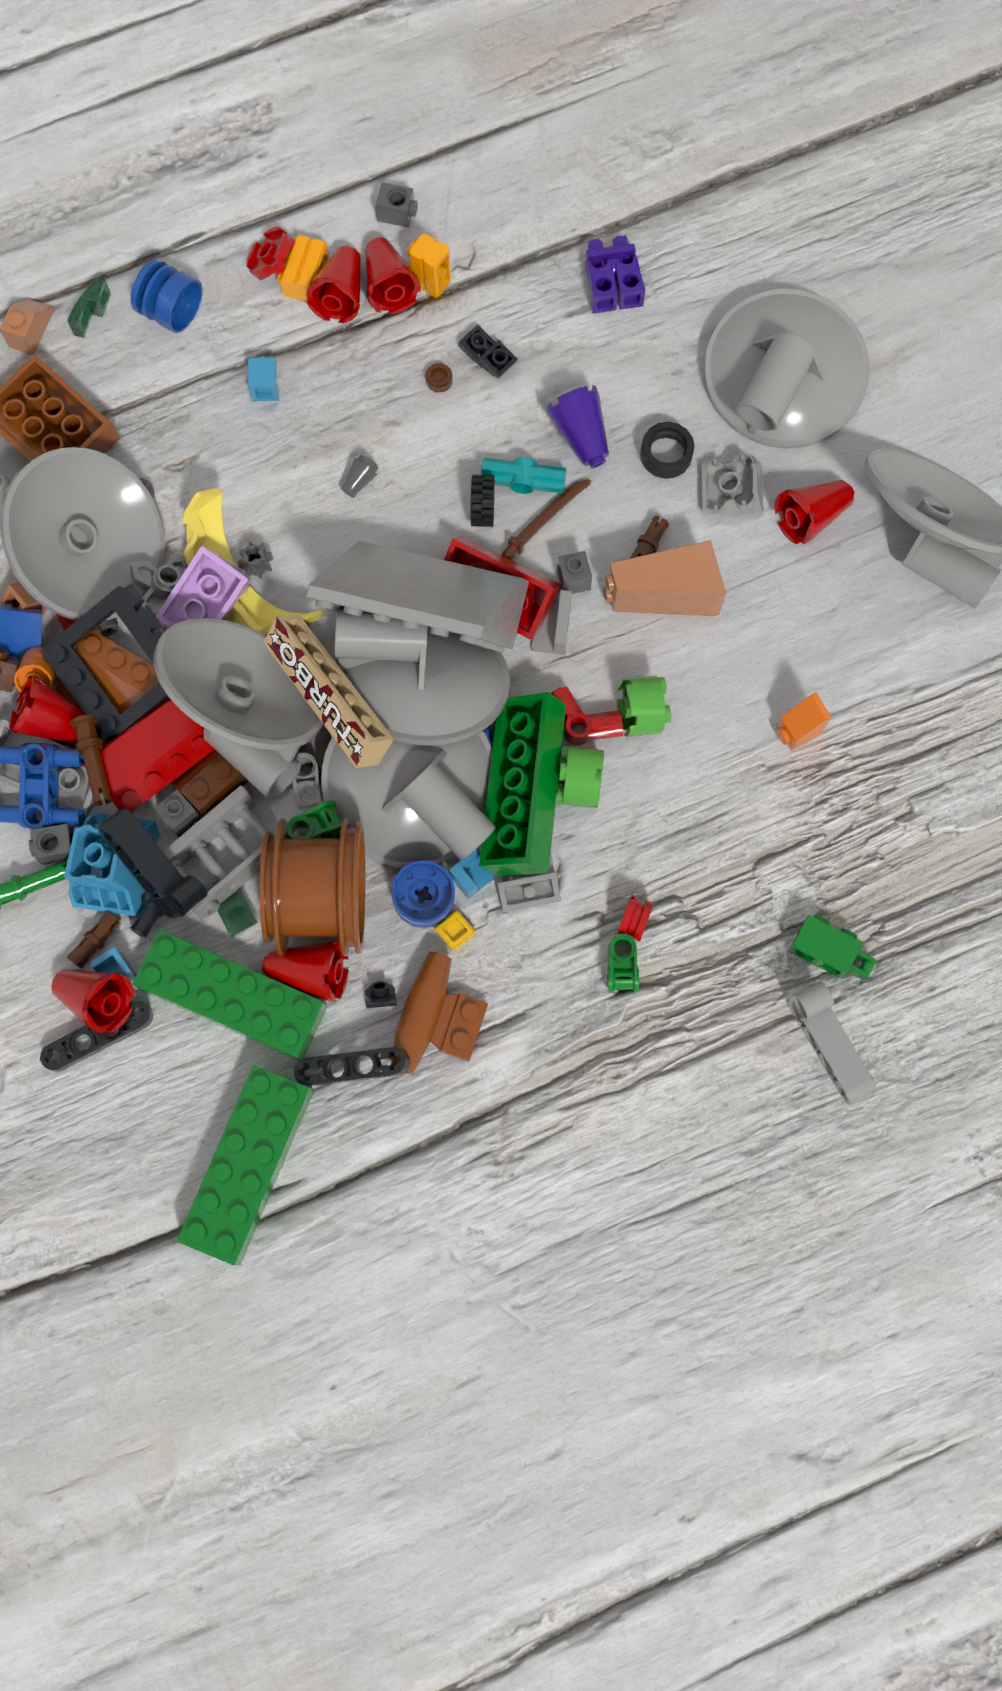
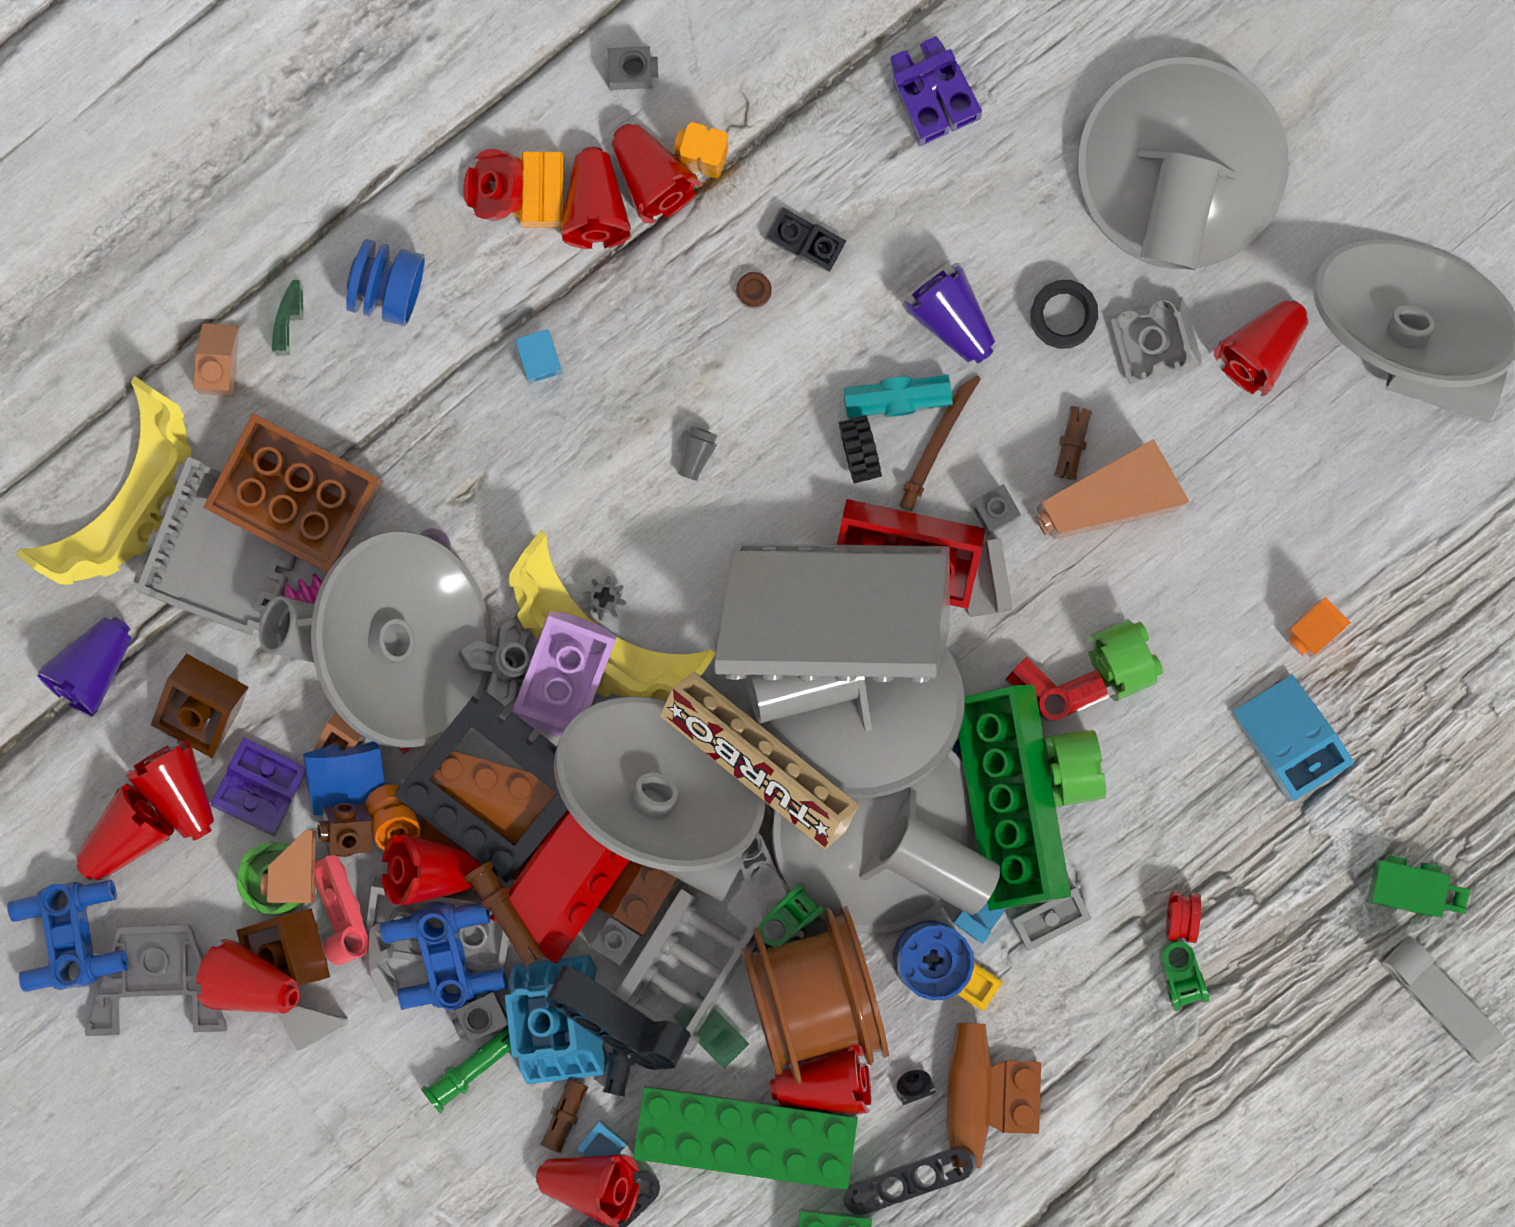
camera: 20 degrees left, 10 degrees up
(762, 805) = (1293, 738): none -> dark azure slope

